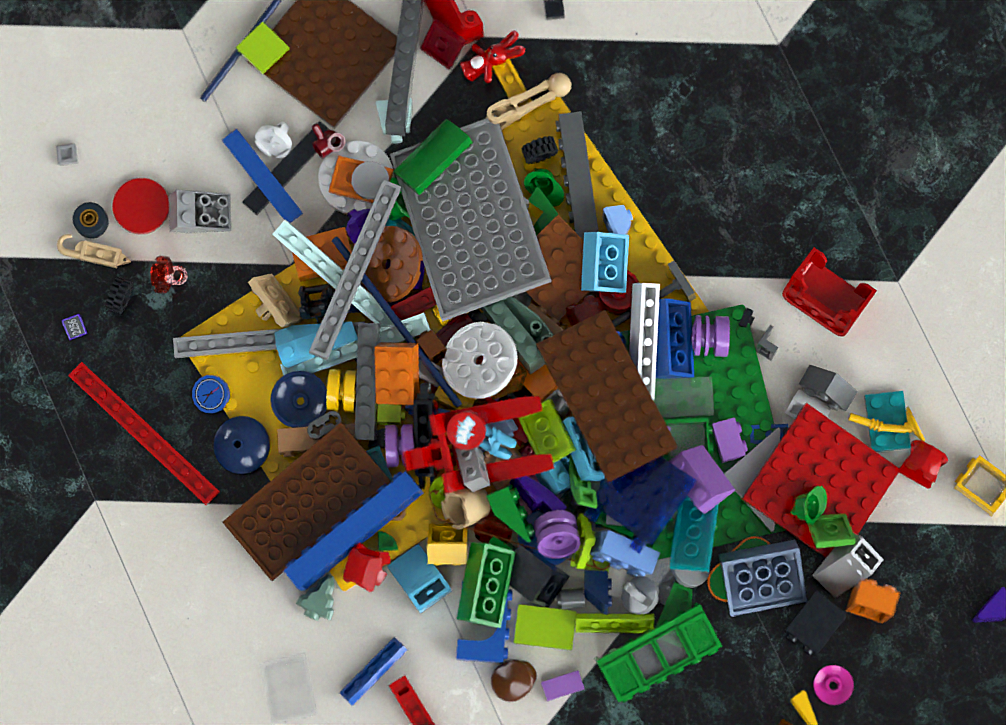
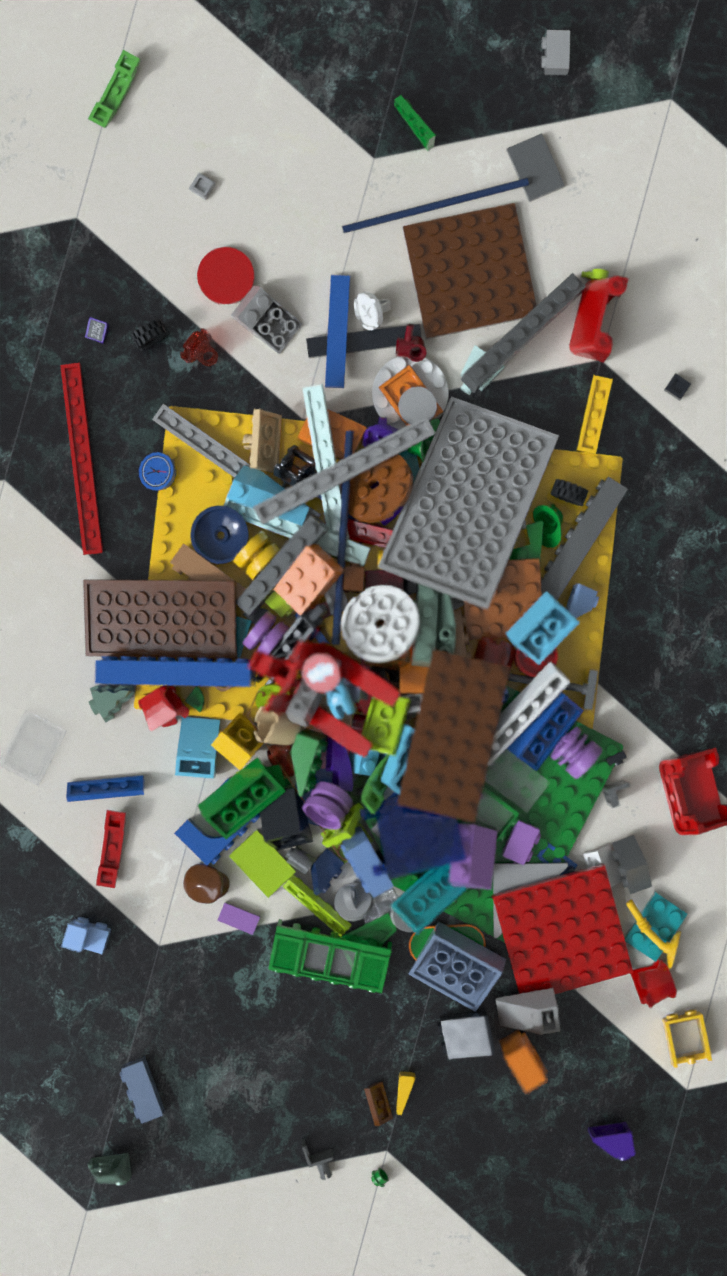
camera: 40 degrees right, 10 degrees up
(93, 253) = (158, 283): tan plate -> none
(96, 223) = (176, 262): black wheel -> none
(253, 448) = (159, 535): dark blue dish -> none
(262, 48) = (422, 227): lime tile -> none
(321, 422) = (222, 567): dark grey beam -> none
(433, 156) = (482, 427): green slope -> none
(442, 44) = (565, 342): dark red plate -> none
(495, 55) = (599, 386): red animal -> none
(509, 111) = (572, 440): tan piece -> none
(810, 505) = (538, 946): green piece -> none
(832, 531) = (538, 979): bright green plate -> none
(843, 682) = (446, 1098): dark pink dish -> none

